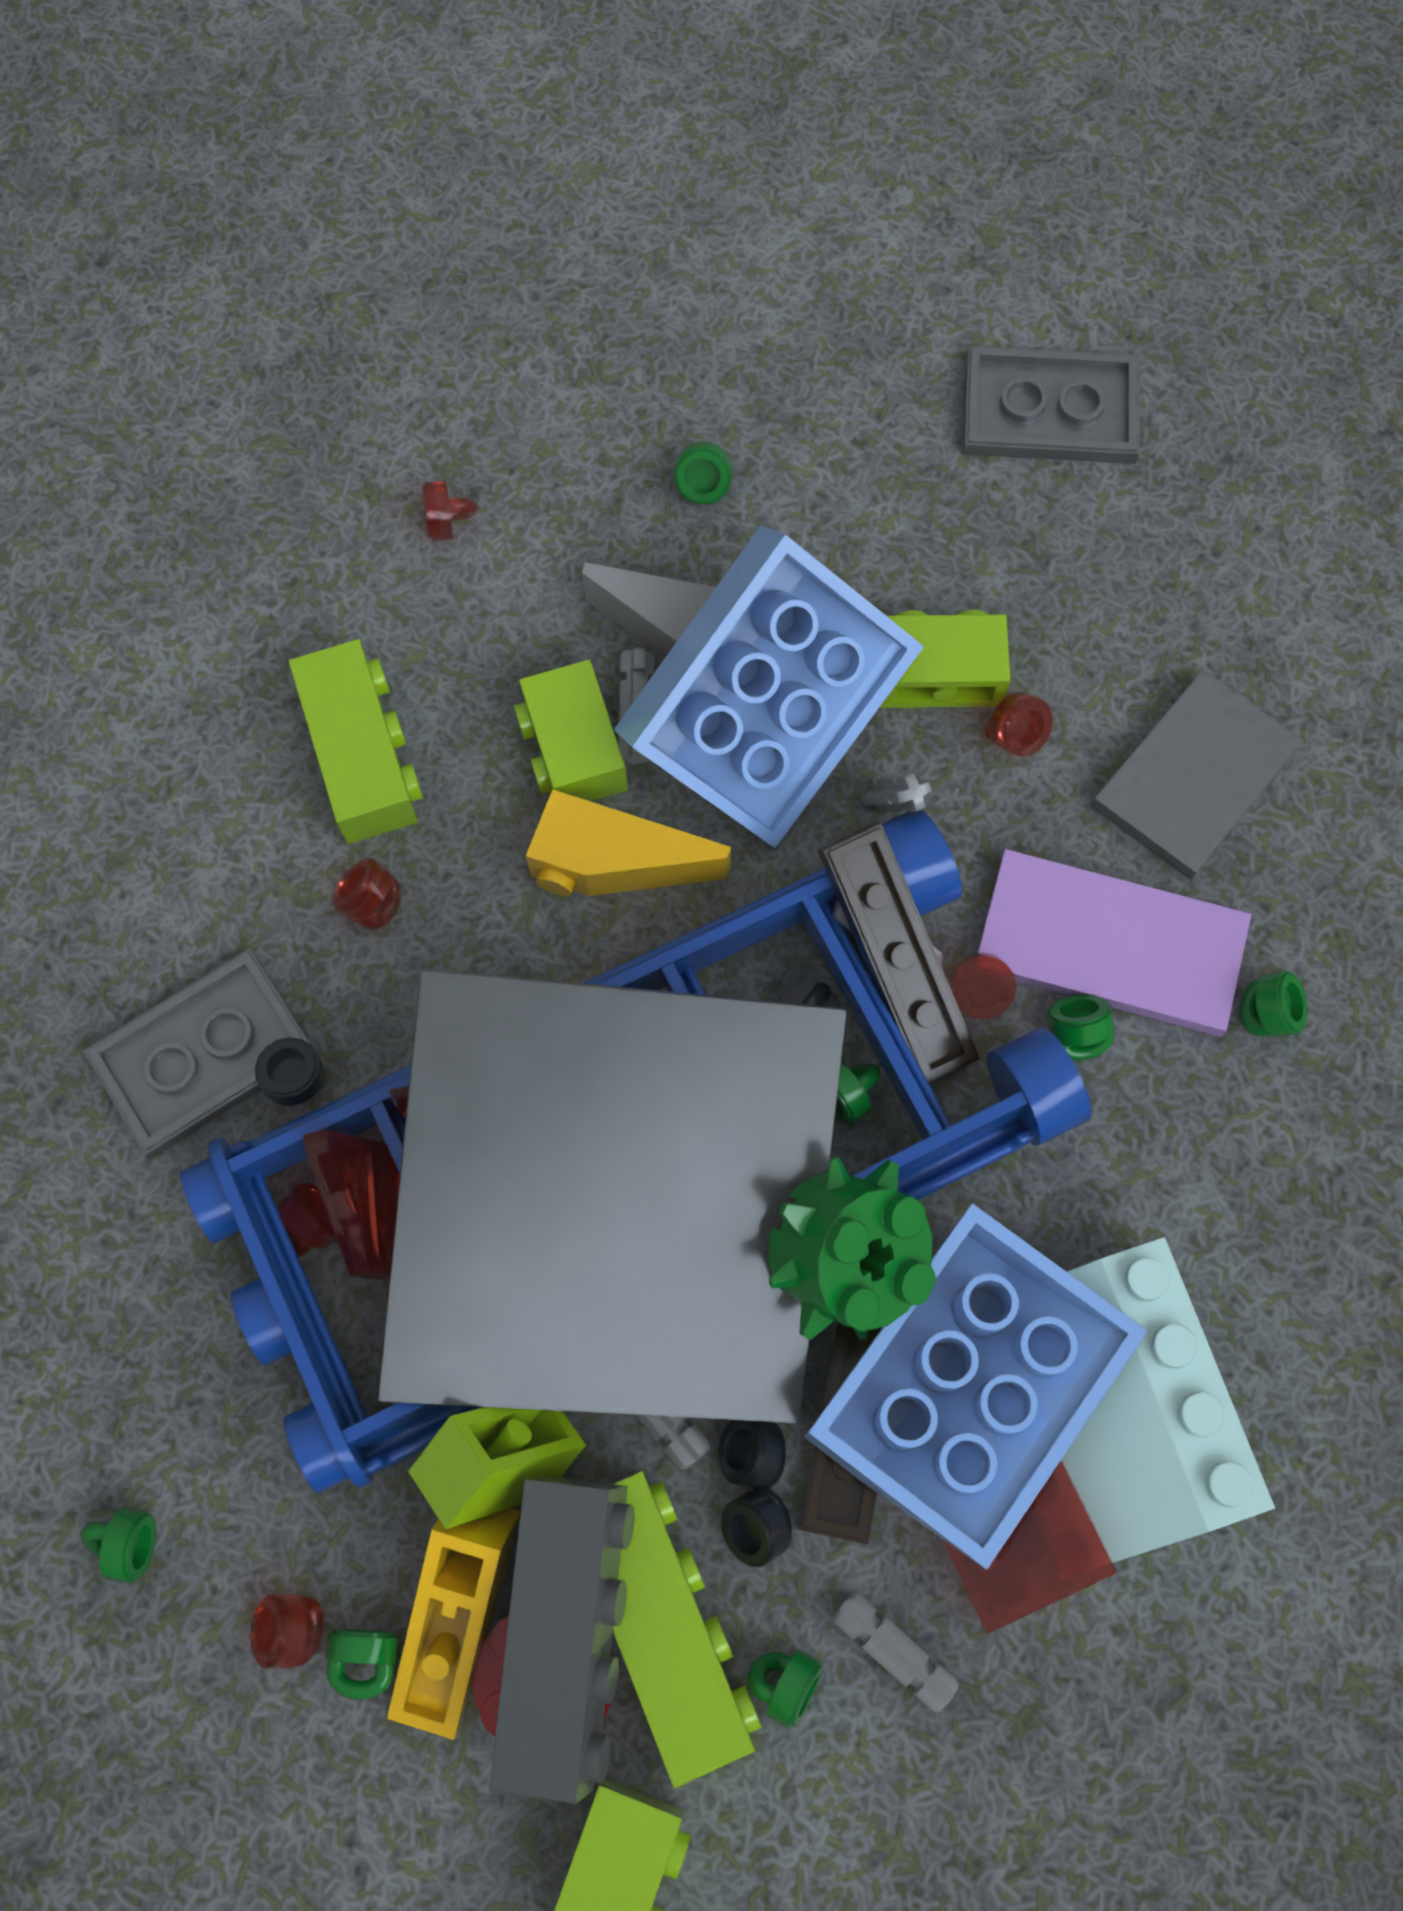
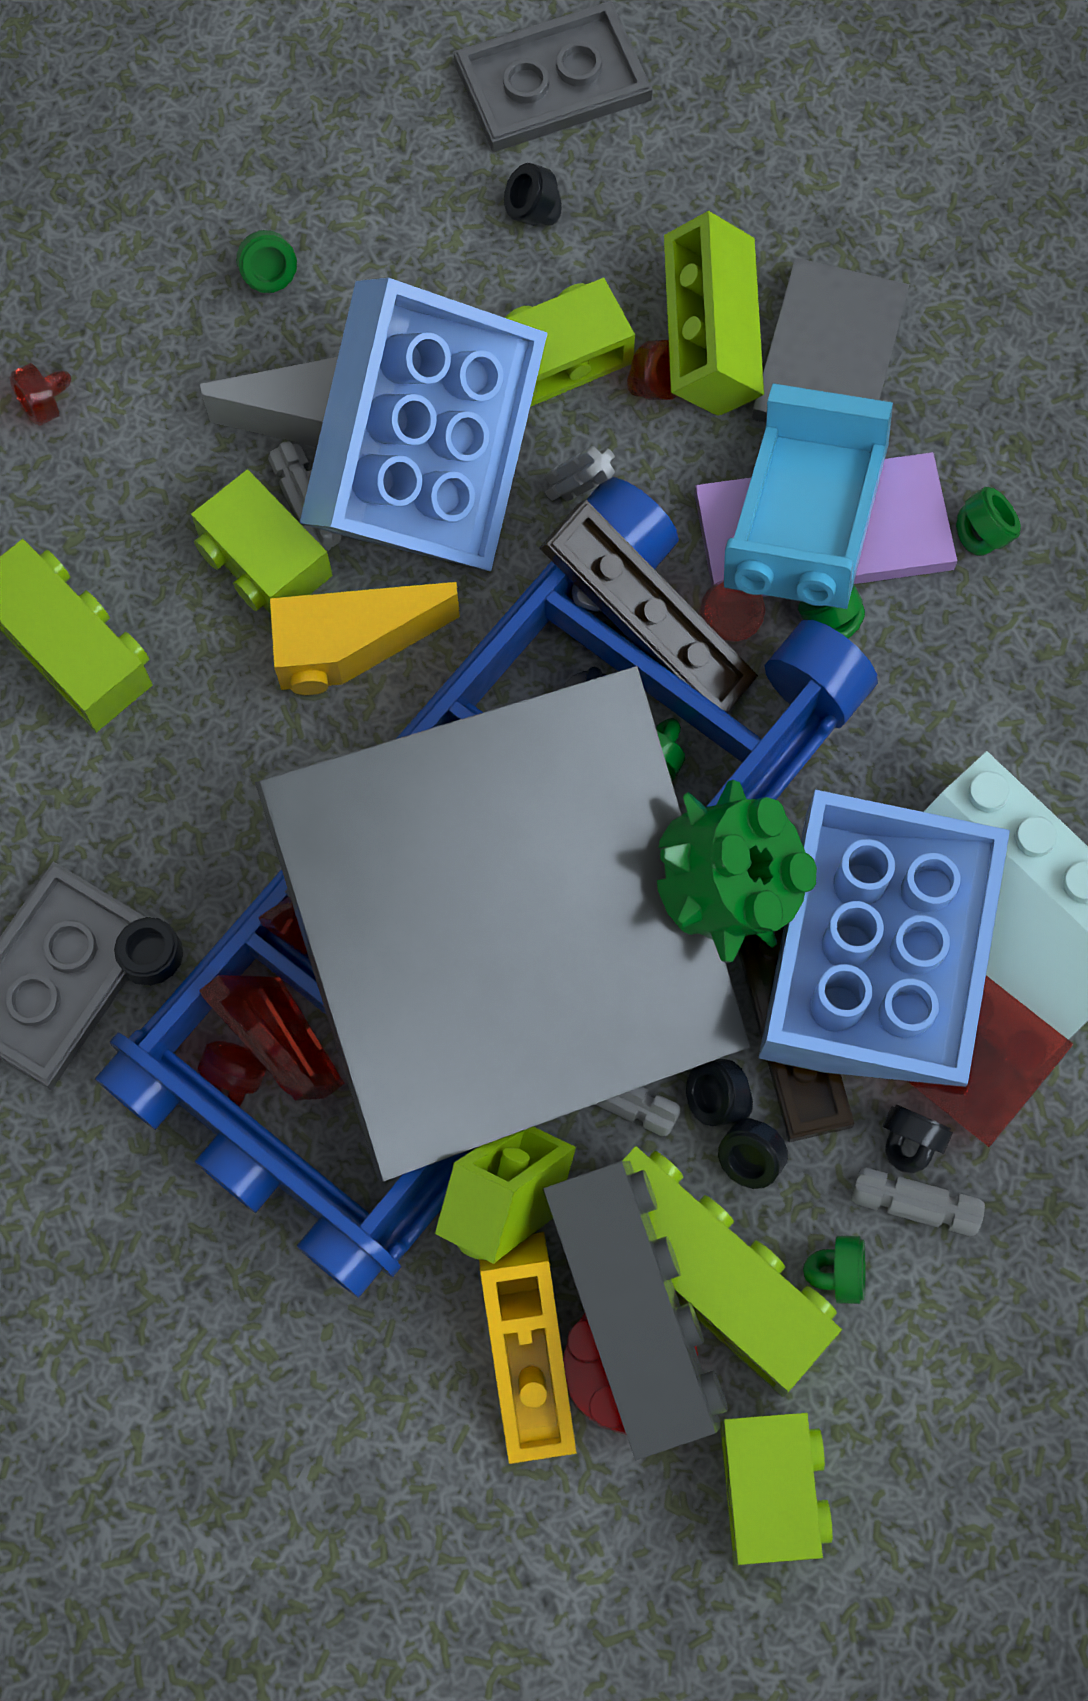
camera: 25 degrees left, 0 degrees up
(122, 1544) = (204, 1424): green tile -> none
(286, 1631) = (383, 1431): clear red tile -> none
(362, 1648) = (460, 1411): green tile -> none
(364, 890) = (139, 766): clear red tile -> none
(926, 1581) = (918, 1128): none -> black tile
(979, 510) = (533, 196): none -> black tile
(1096, 692) = (713, 314): none -> lime brick
(1106, 910) = (809, 497): none -> medium azure panel

